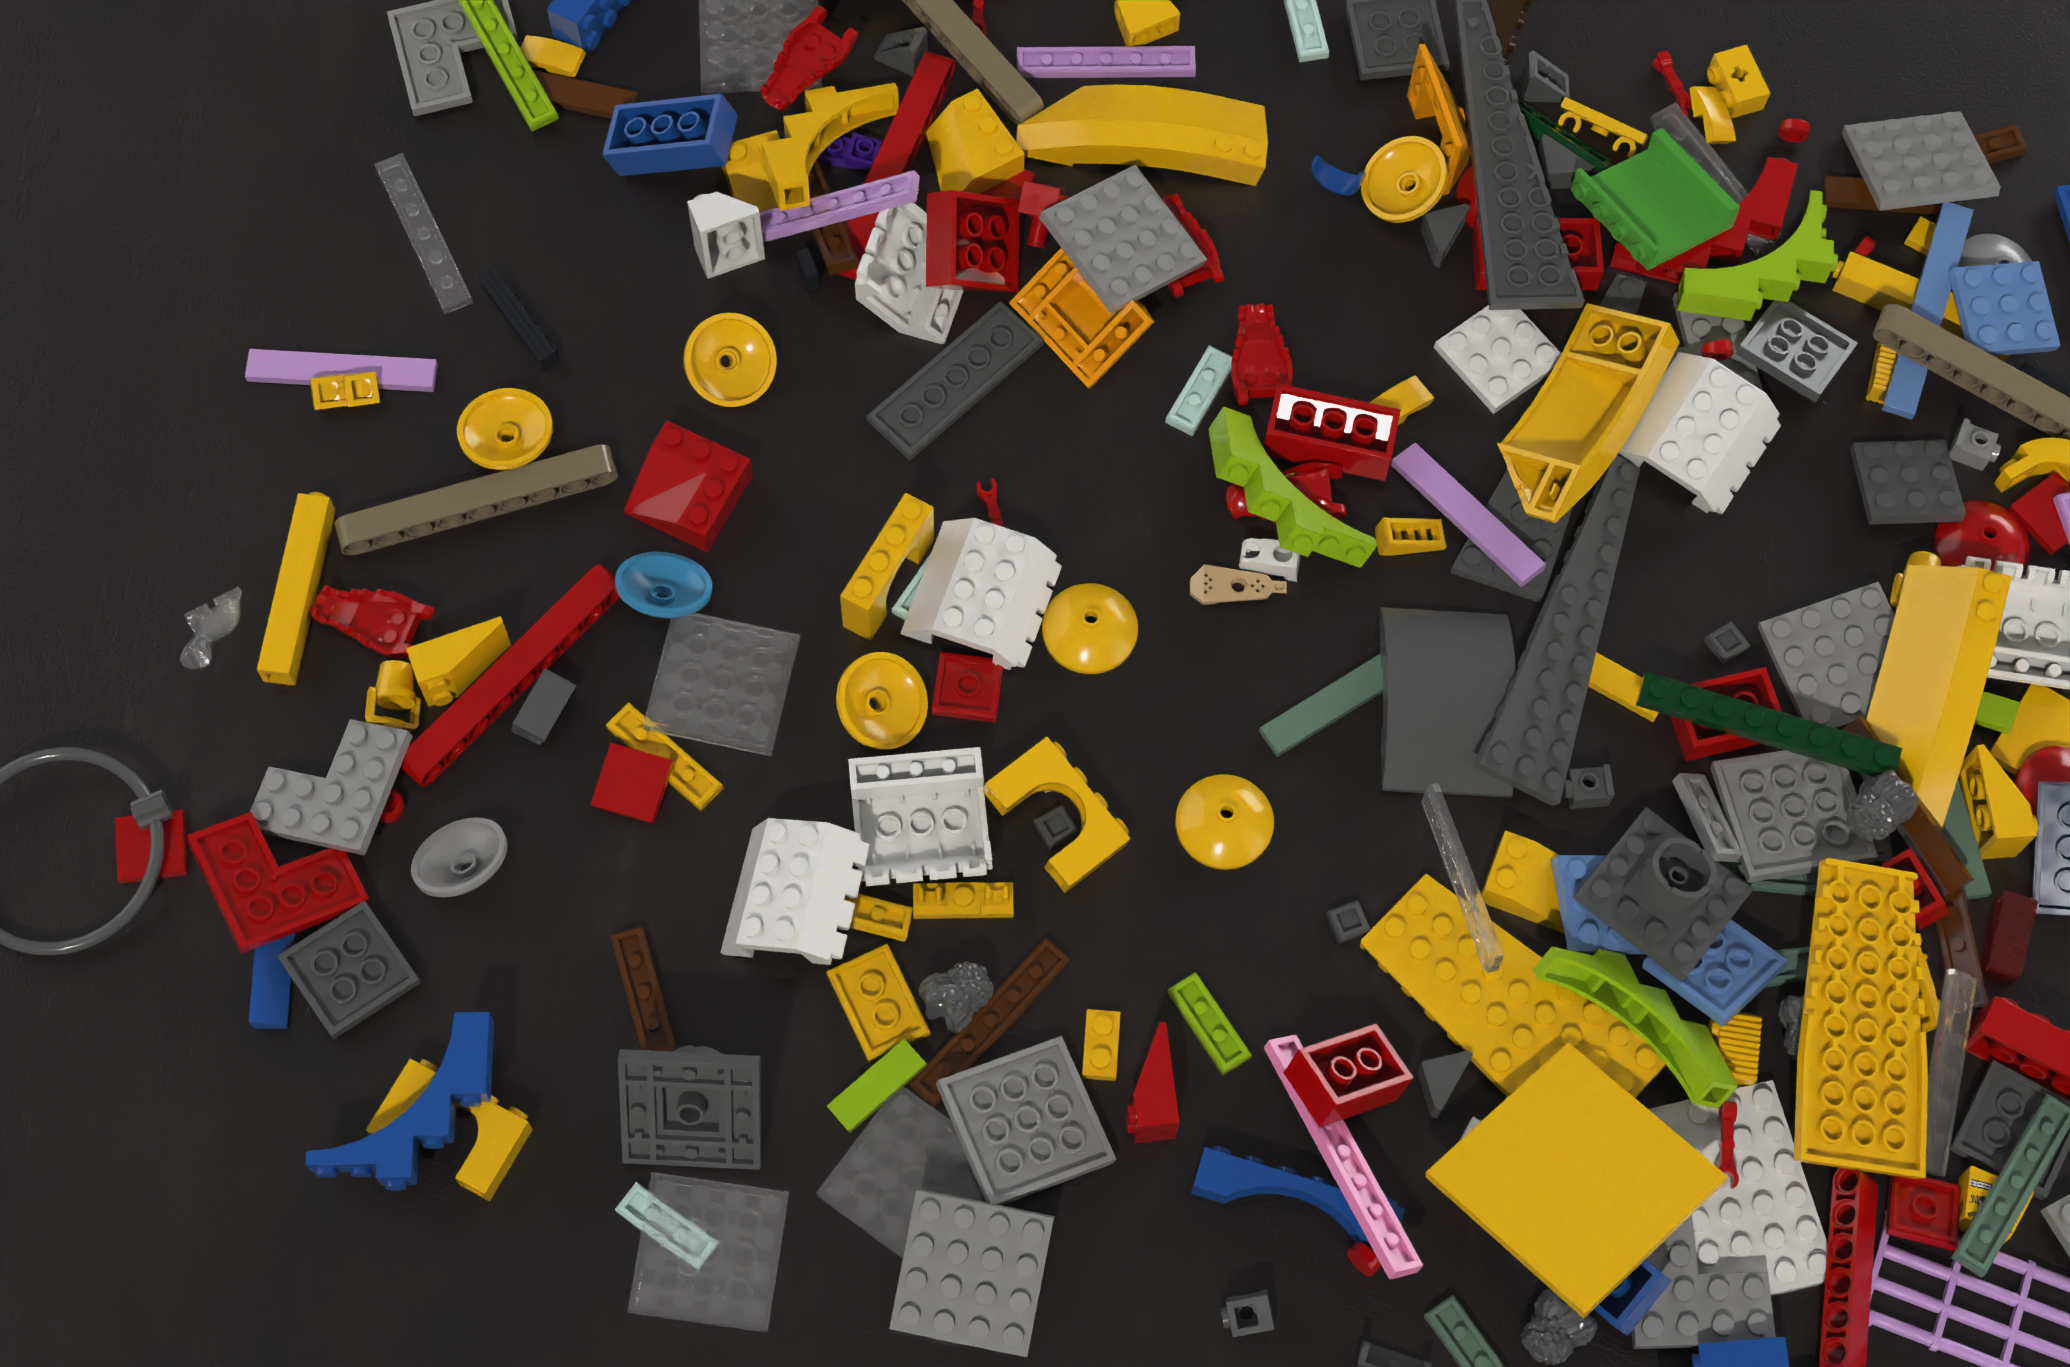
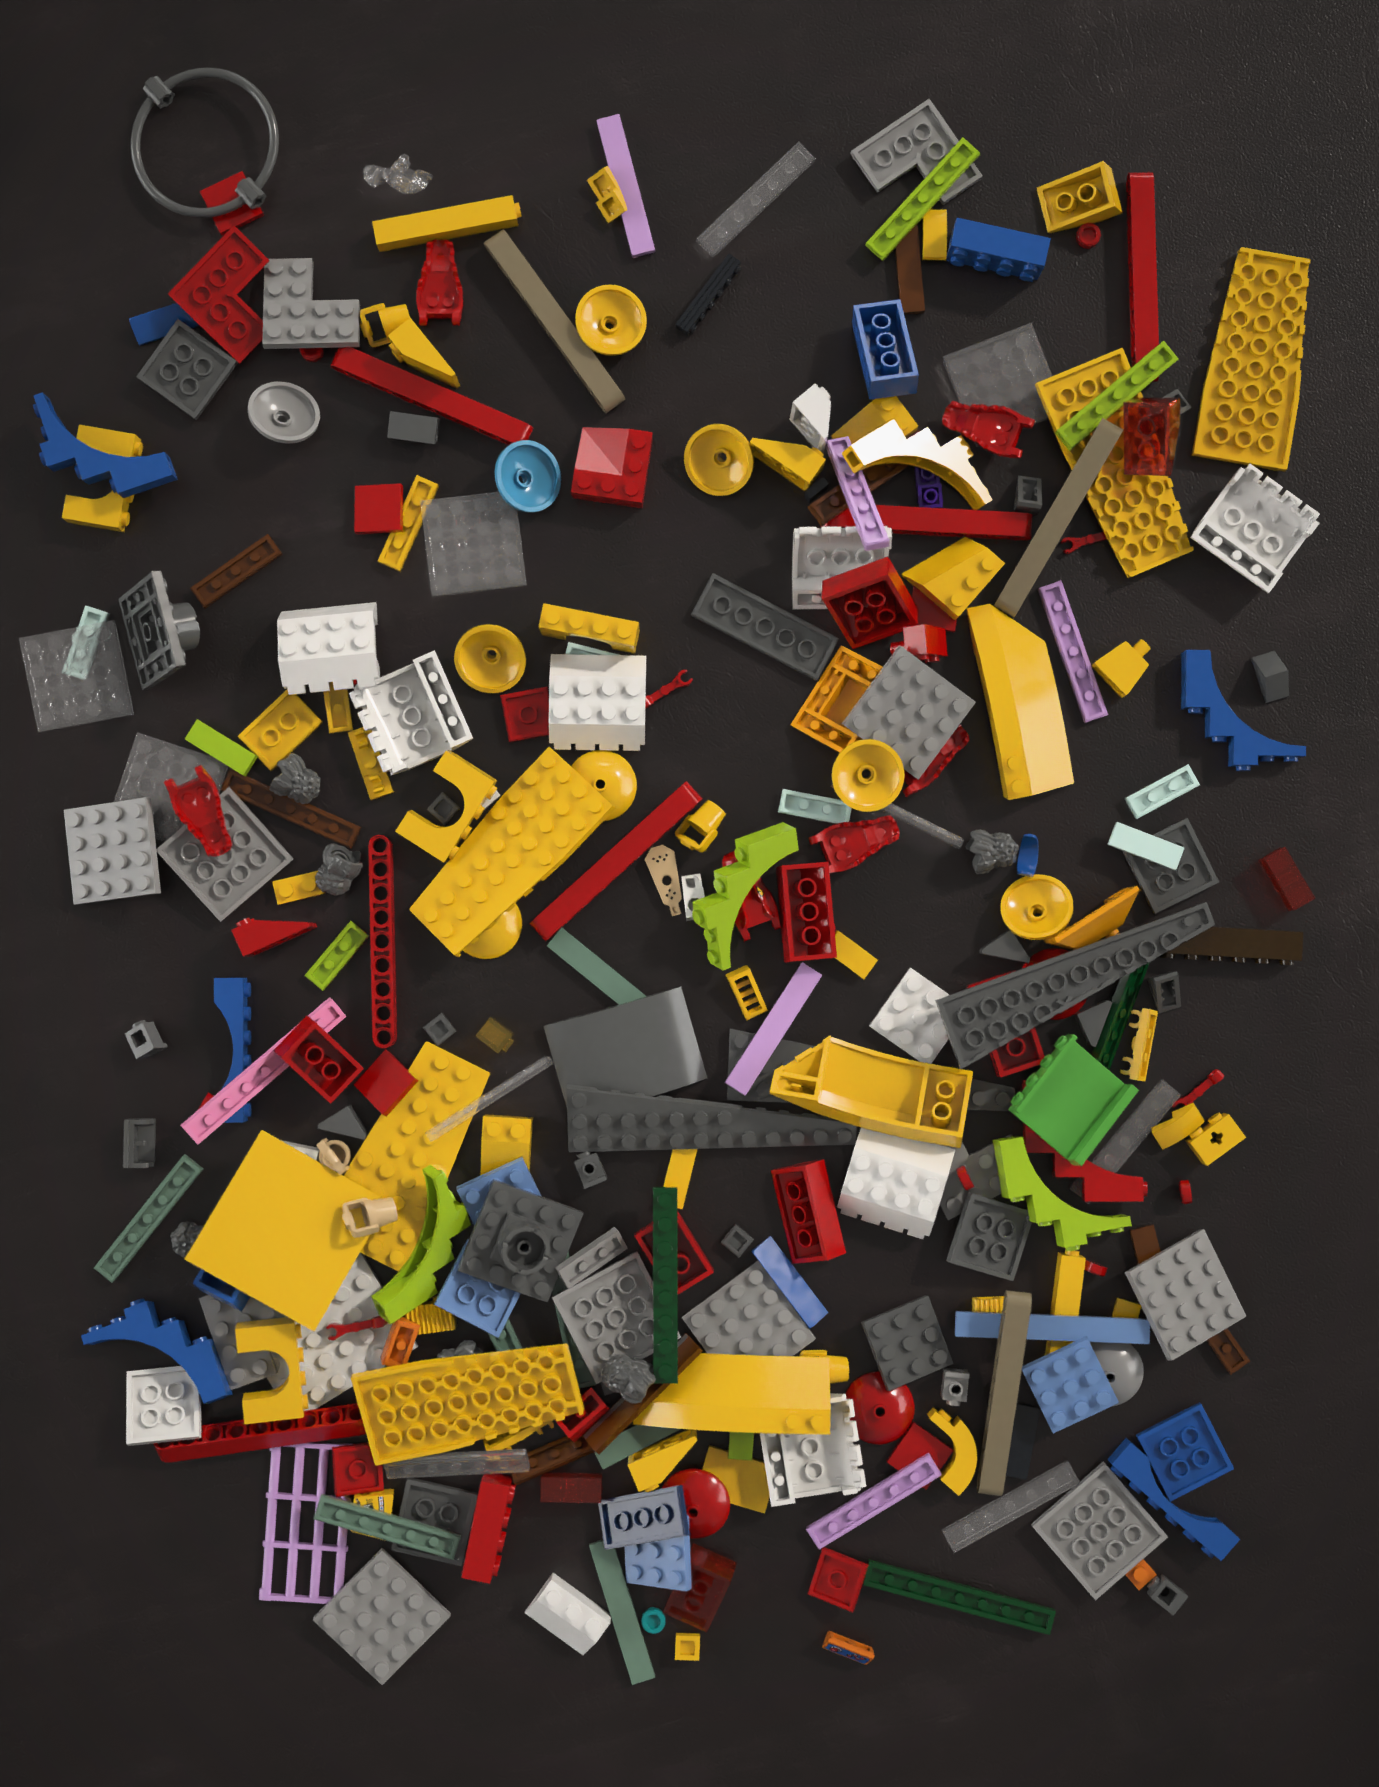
camera: 70 degrees right, 20 degrees up
(767, 278) = (792, 461): none -> yellow slope
(956, 1118) = (200, 808): none -> red animal
(1096, 978) = (338, 869): none -> dark grey hair
(1144, 753) = (511, 850): none -> yellow wing
(1181, 517) = (704, 821): none -> yellow piece
(1196, 291) = (879, 787): none -> yellow dish
(1196, 637) = (616, 861): none -> red beam
(1220, 967) = (388, 952): none -> red beam
(1241, 295) = (922, 825): none -> clear tile
(1319, 210) = (991, 850): none -> dark grey hair
(1366, 47) = (1145, 846): none -> light aqua tile
(1378, 850) = (495, 1035): none -> clear yellow brick
(1403, 1006) = (385, 1083): none -> red tile
(1483, 1096) = (334, 1155): none -> tan piece
(1583, 1058) = (374, 1212): none -> tan piece
(1712, 546) = (808, 1212): none -> red slope
(1764, 1093) = (399, 1342): none -> orange slope
(1794, 595) = (789, 1281): none -> slope
(1807, 1262) = (288, 1399): none -> yellow arch

